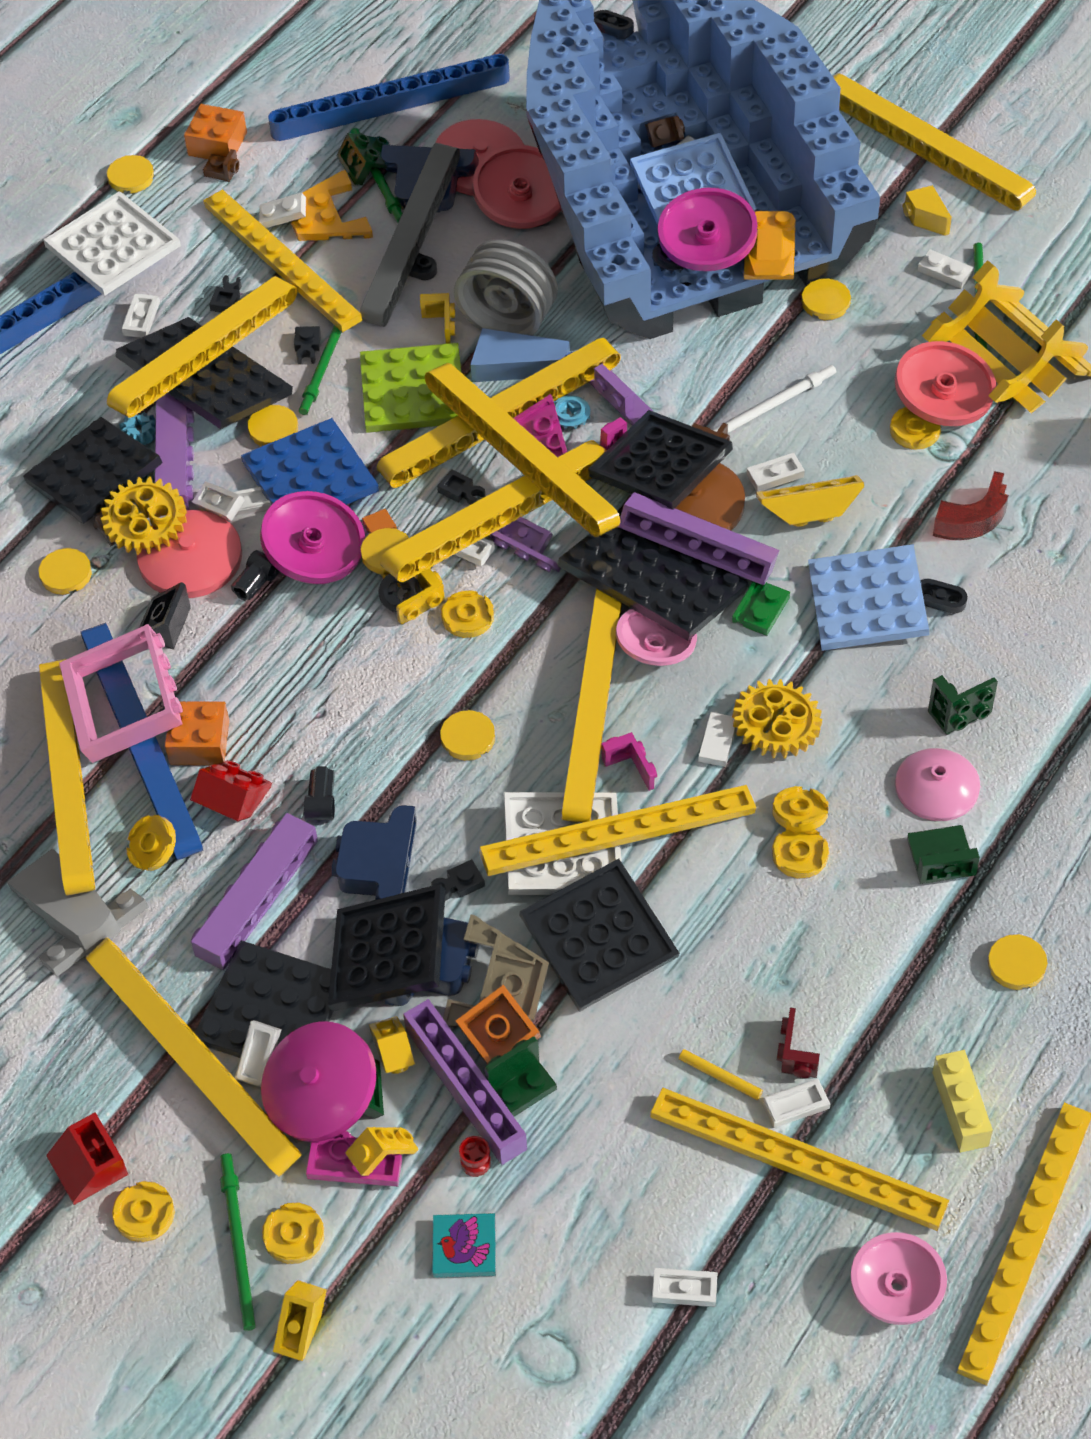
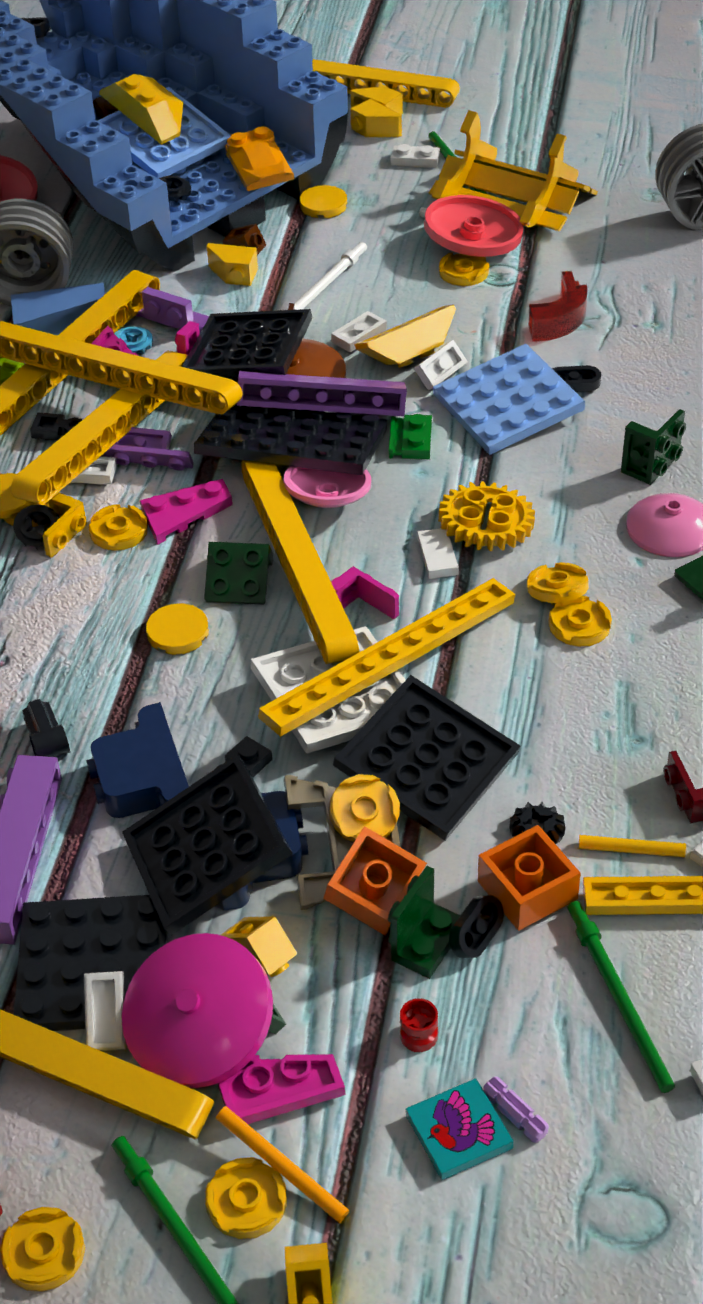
camera: 25 degrees left, 10 degrees down
(326, 1220) = (282, 1164): none -> light orange bar
(376, 1143) = (301, 1056): yellow bracket -> none
(465, 1082) = (368, 949): medium lavender brick -> none
(511, 1248) = (516, 1109): none -> lavender axle
(520, 965) = (361, 803): none -> yellow tile
(525, 613) = (179, 508): none -> dark pink wing
(539, 700) = (237, 572): none -> dark green bracket
(558, 1096) = (475, 931): none -> black plate
(618, 1071) = (529, 877): none -> orange brick
(642, 1136) = (590, 937): none -> green bar
(665, 1036) = (552, 821): none -> black gear
(686, 152) = (147, 106): none -> yellow wedge
(702, 352) = (233, 263): none -> yellow slope
(707, 229) = (197, 154): dark pink dish -> none
(728, 324) = (246, 236): none -> reddish brown bracket
(827, 538) = (440, 365): none -> white plate
(947, 184) = (382, 95): none -> yellow slope

